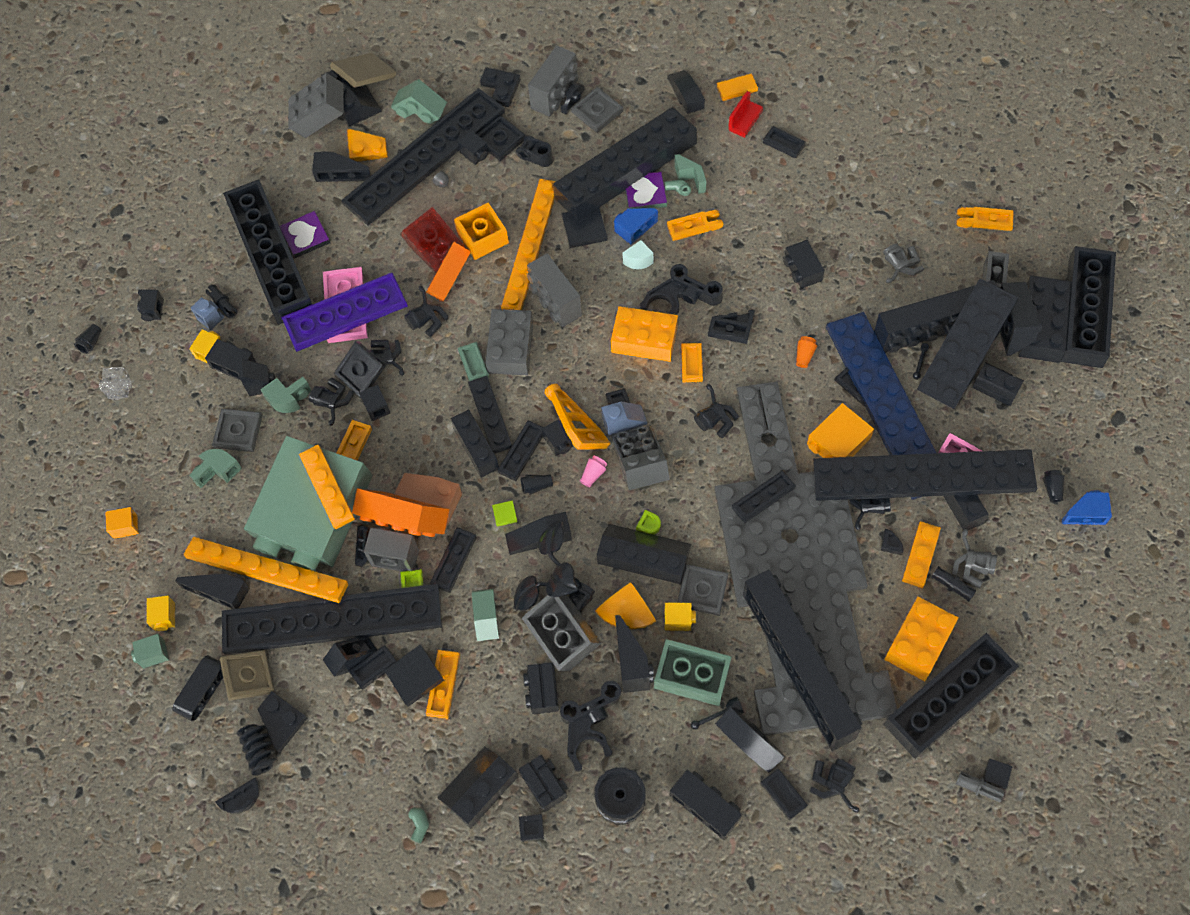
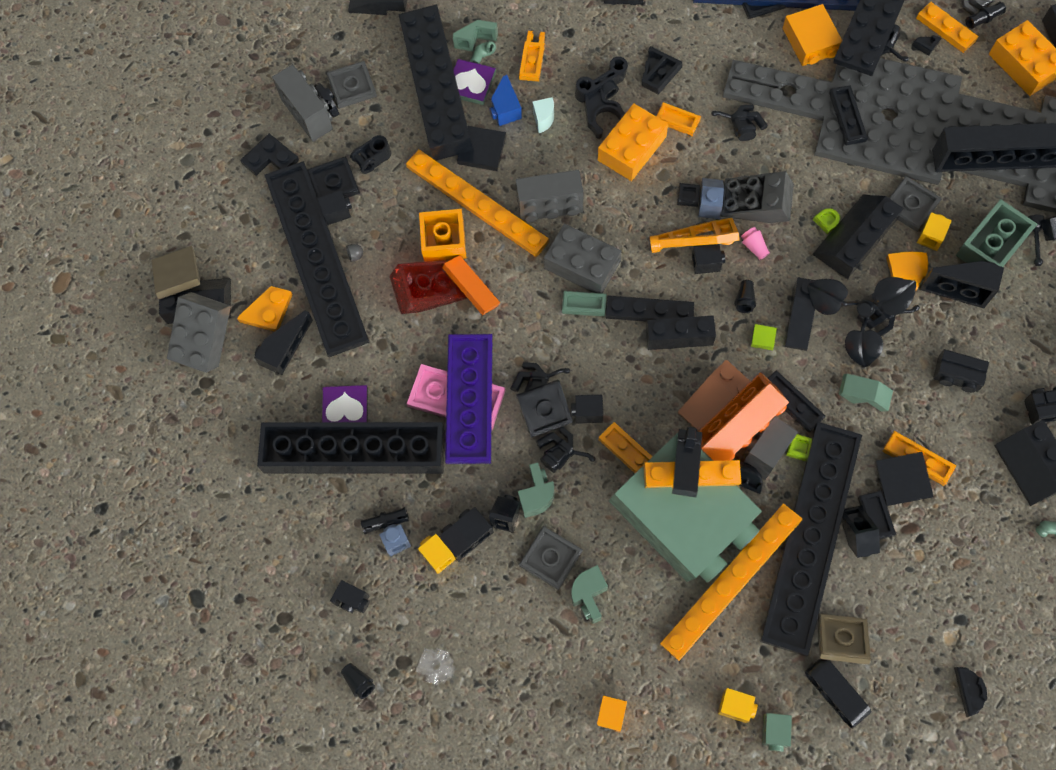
camera: 65 degrees left, 5 degrees up
(217, 587) = (733, 635): black slope -> none
(256, 748) = (928, 652): black piece -> none
(280, 720) = (899, 624): black wing -> none
(328, 473) = (687, 462): none -> black hinge
(420, 100) = (248, 233): sand green brick -> none
(421, 315) = (506, 324): black piece -> none
(521, 451) = (703, 297): black tile -> none
(561, 631) = (918, 329): dark grey brick -> none
(586, 716) = (1001, 343): black piece -> none
(805, 350) = (712, 24): orange cone -> none

